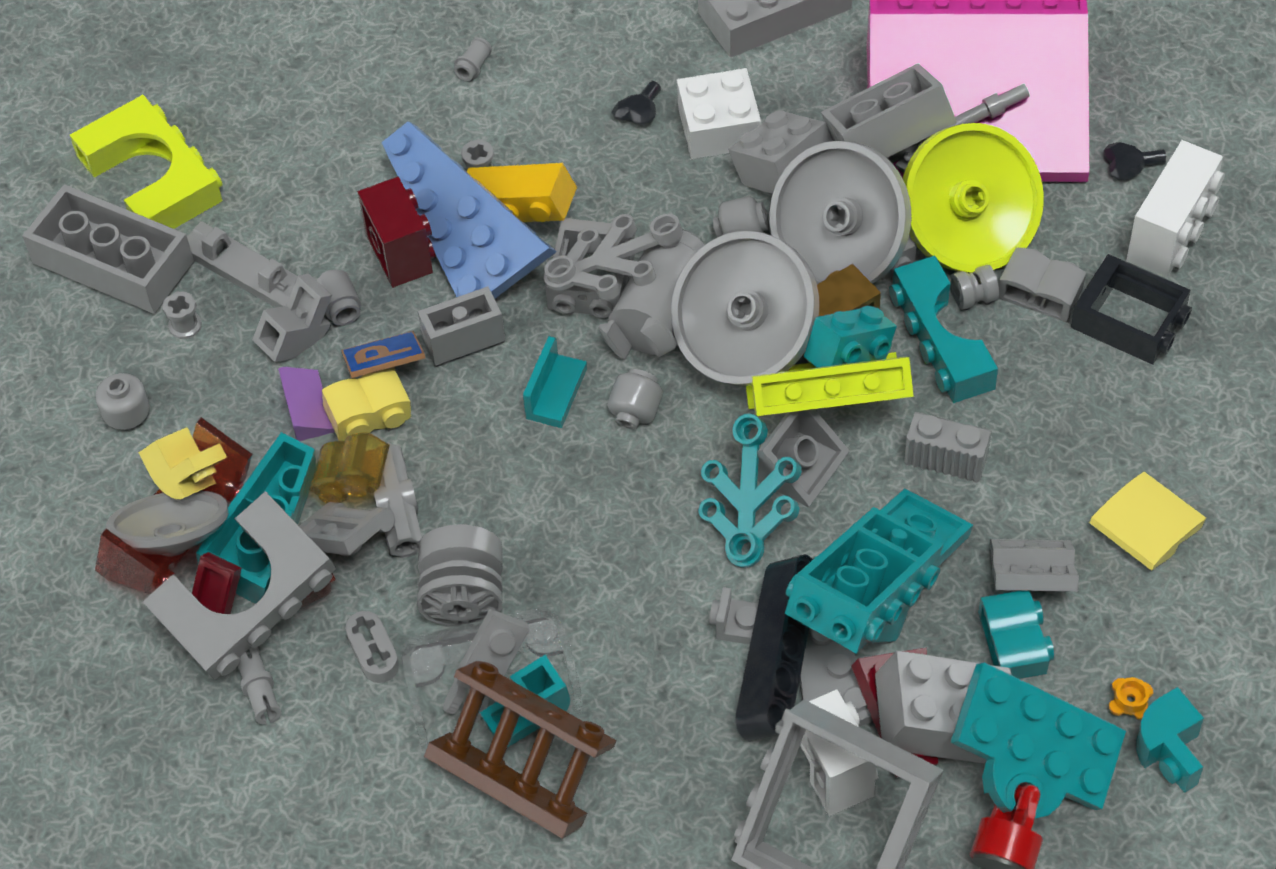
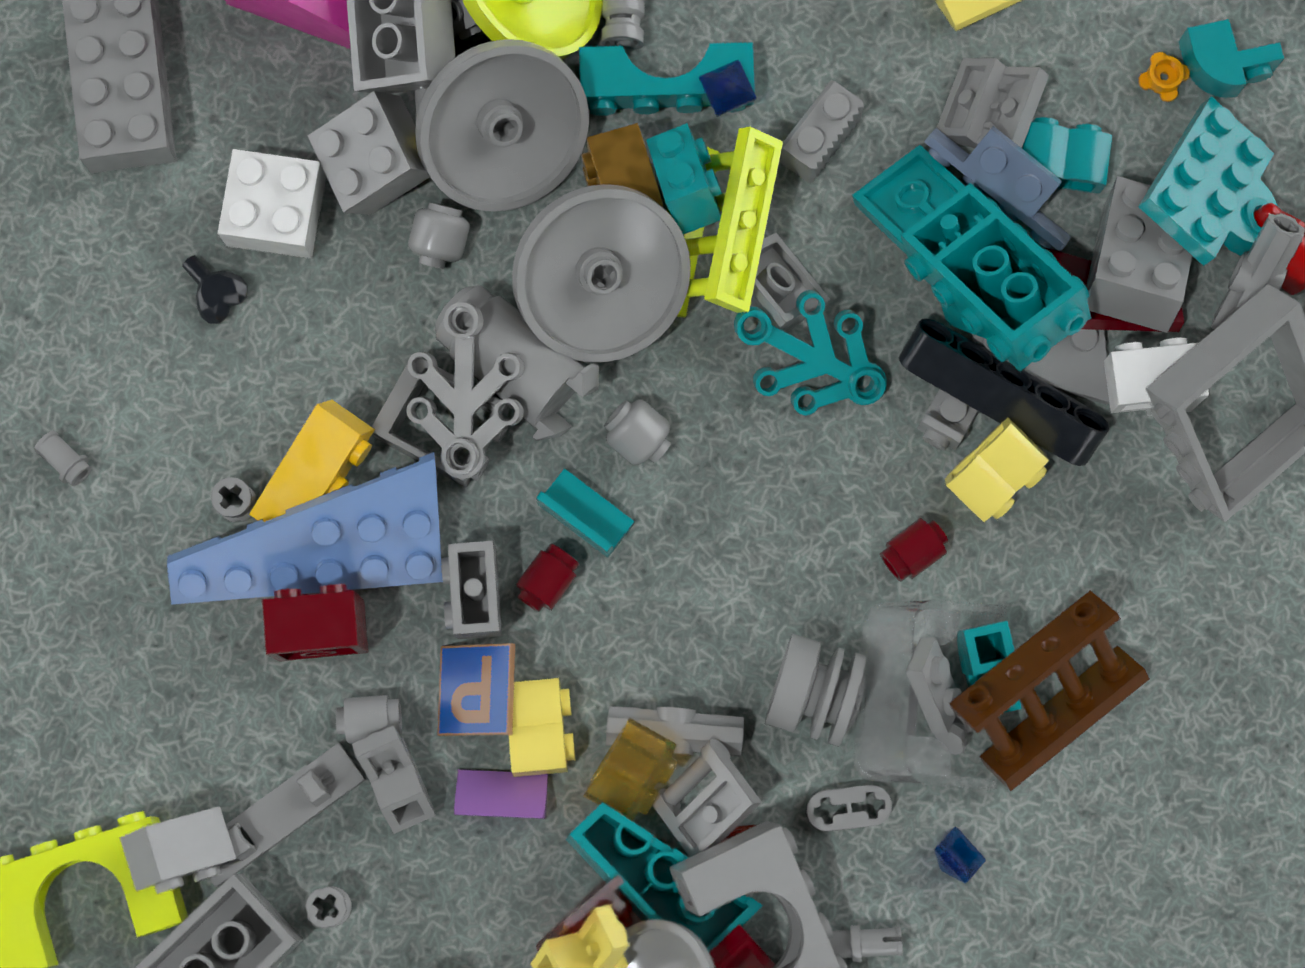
camera: 75 degrees left, 25 degrees up
(193, 194) = (178, 848): none -> light grey brick
(357, 739) = (958, 856): none -> clear blue slope
(490, 375) = (547, 578): none -> dark red brick
(612, 624) = (914, 549): none -> dark red brick
(704, 660) = (997, 470): none -> light yellow brick
(948, 360) = (727, 88): none -> clear blue slope
(967, 588) = (1009, 177): none -> sand blue bracket
(971, 798) = (1262, 265): none -> light grey piece

